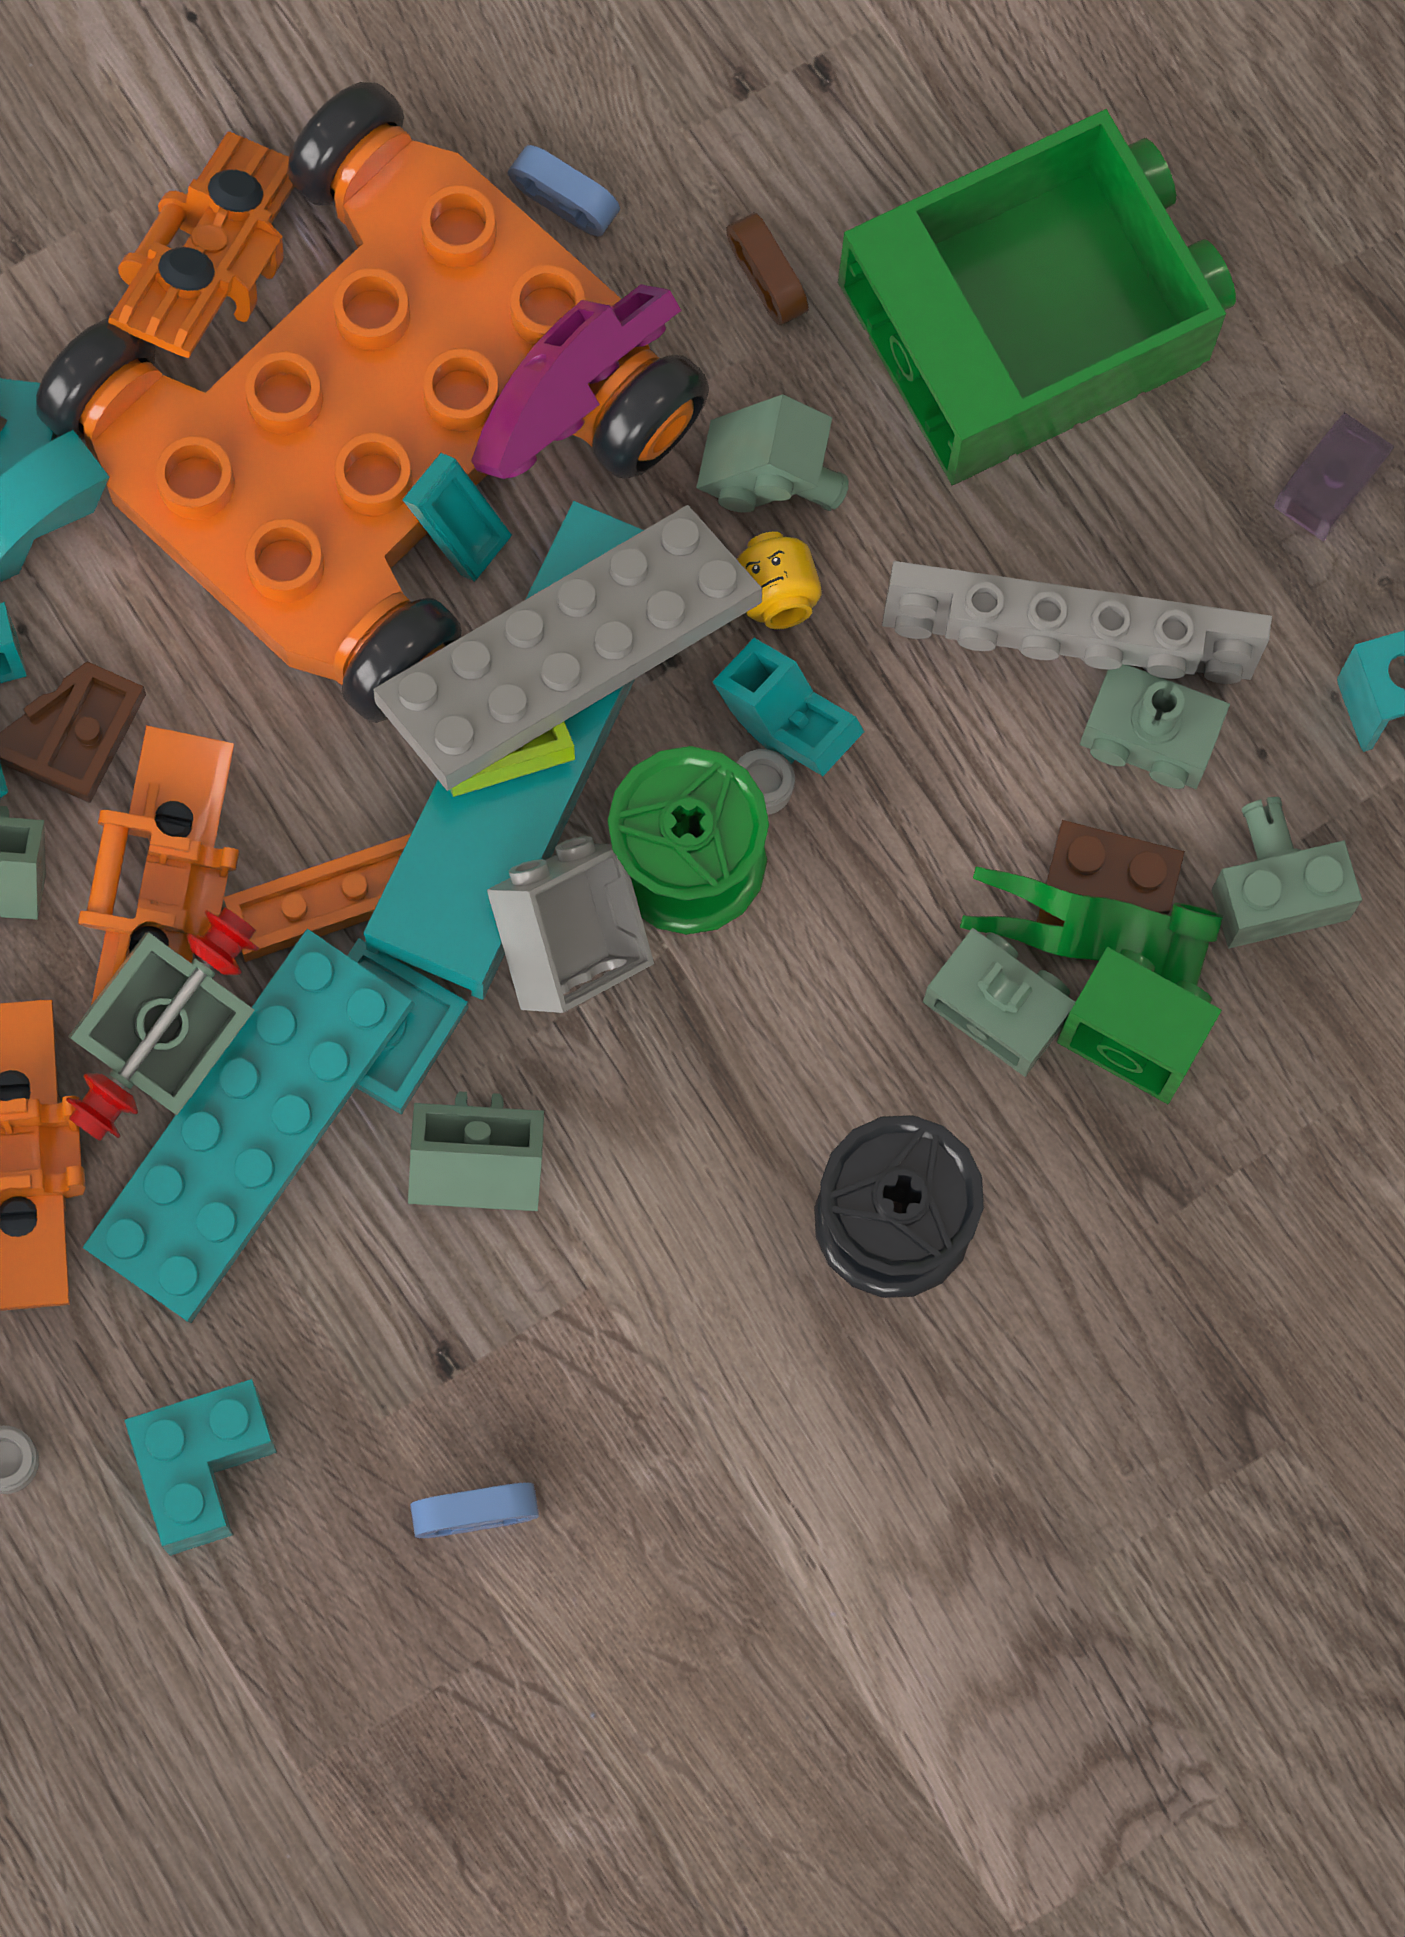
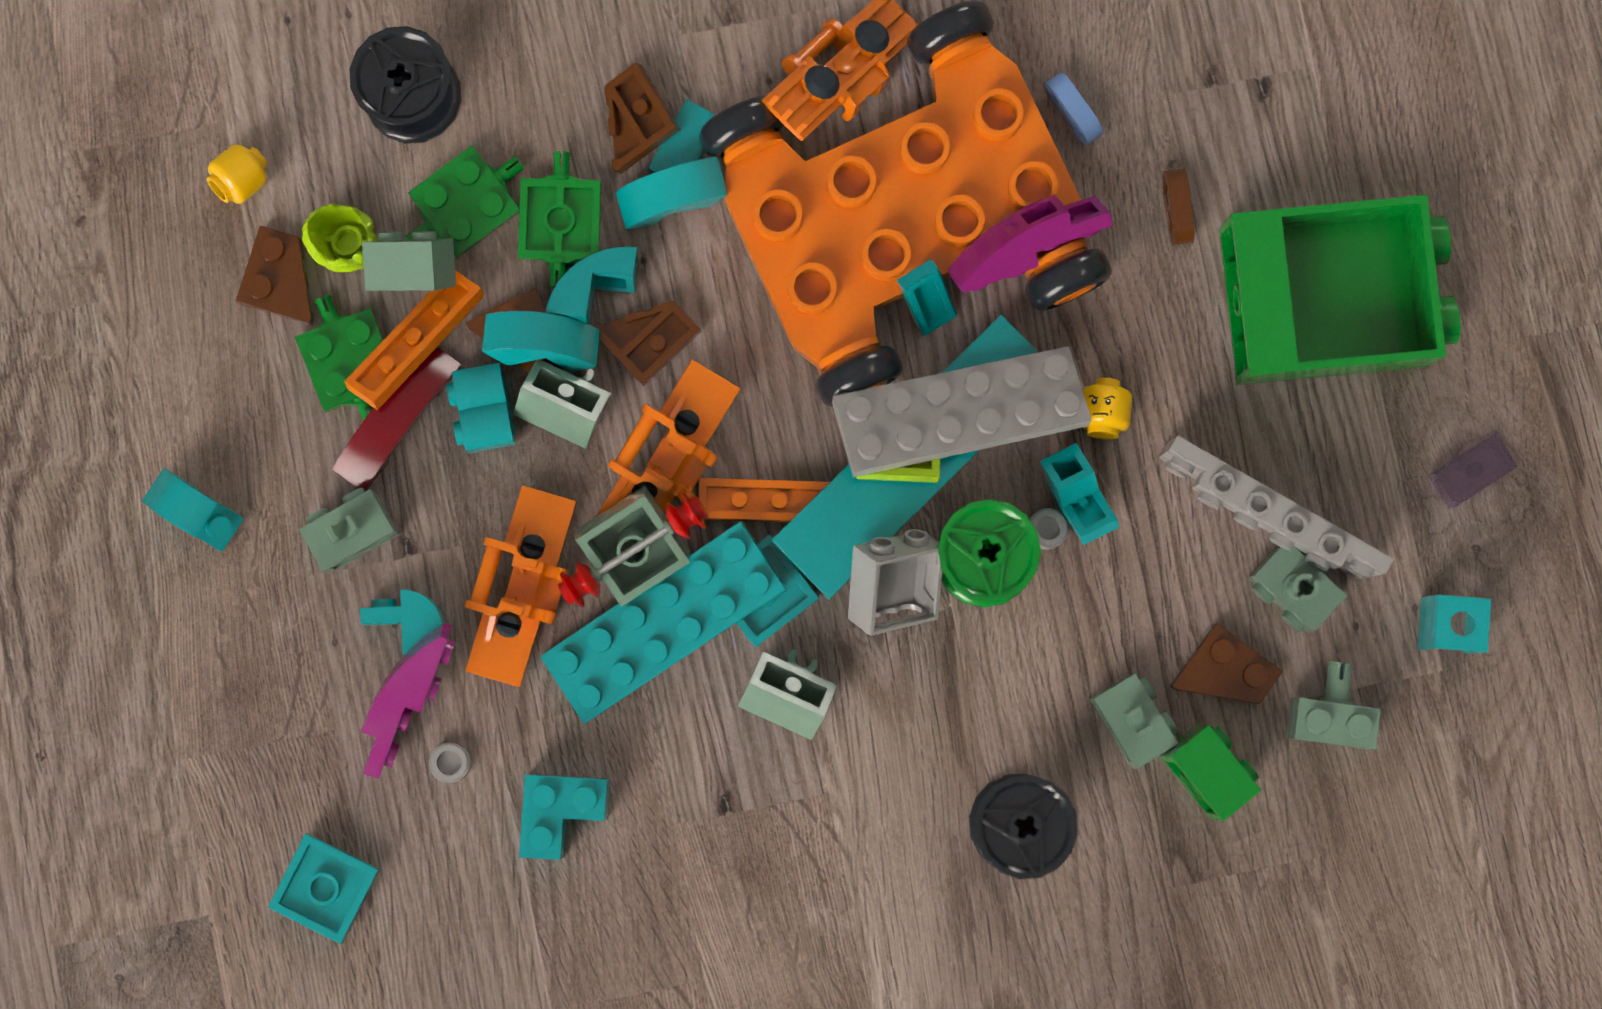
camera: 25 degrees right, 10 degrees up
(474, 1510) = (707, 901): medium blue beam -> none
(770, 455) = (1130, 333): sand green brick -> none
(1092, 923) = (1217, 702): green flag -> none

